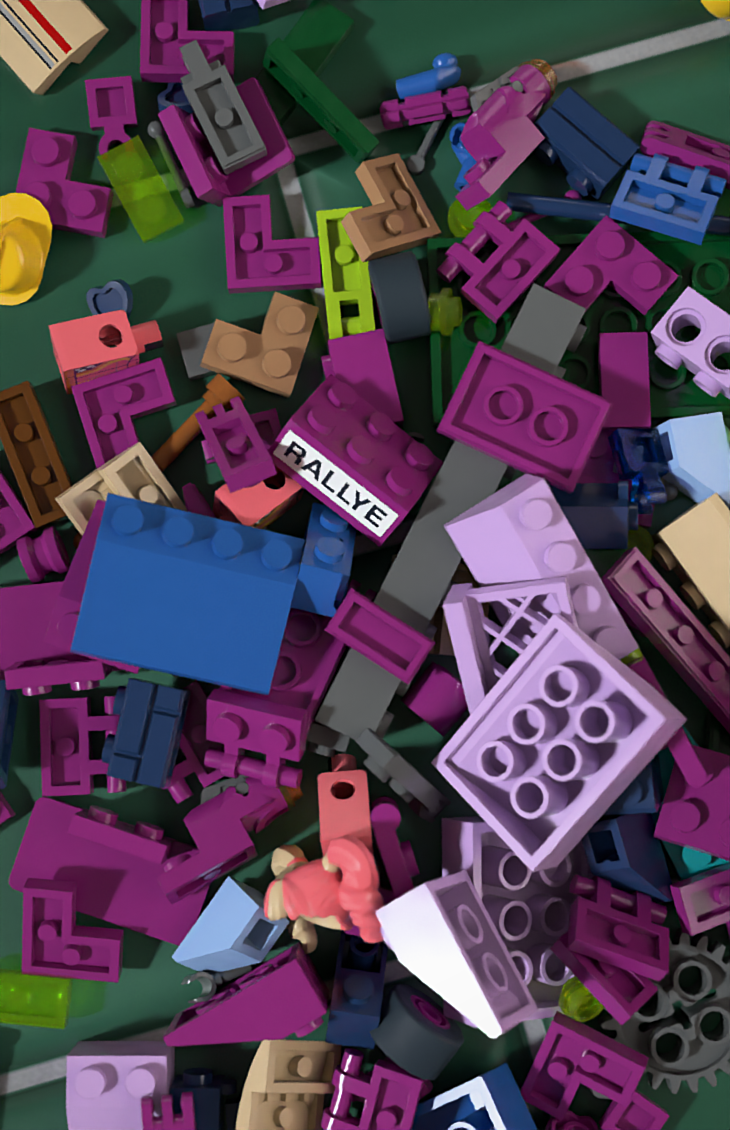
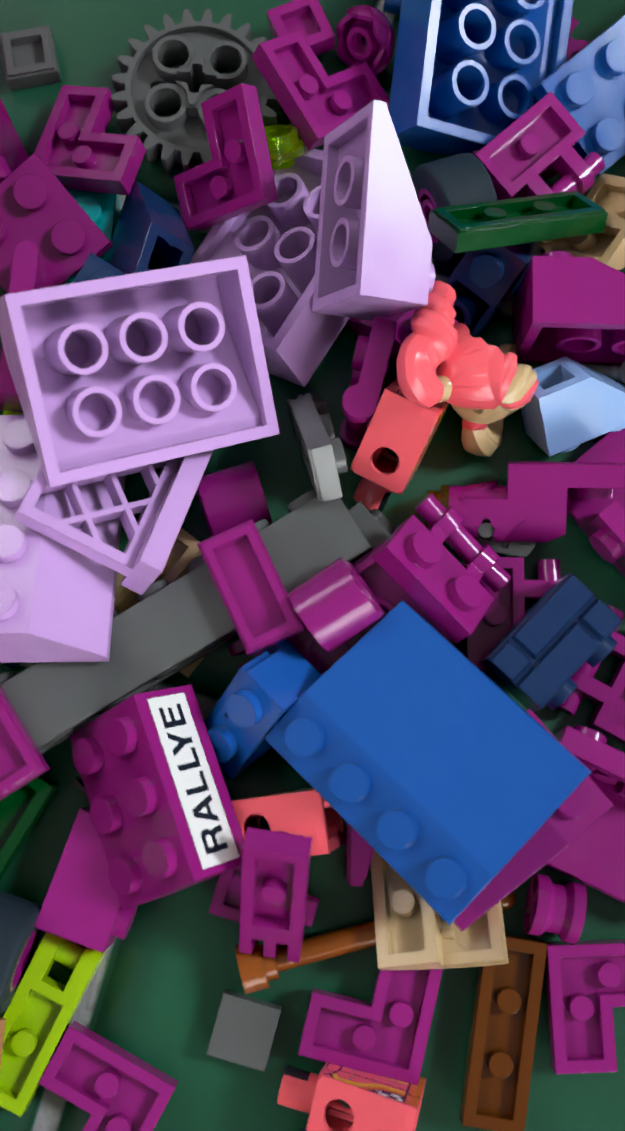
camera: 150 degrees left, 5 degrees down
(267, 358) = (178, 976): medium nougat plate -> none
(312, 660) = (335, 604): none -> magenta piece
(355, 1038) = (516, 221): none -> dark green tile
(614, 936) = (207, 168): magenta plate -> none

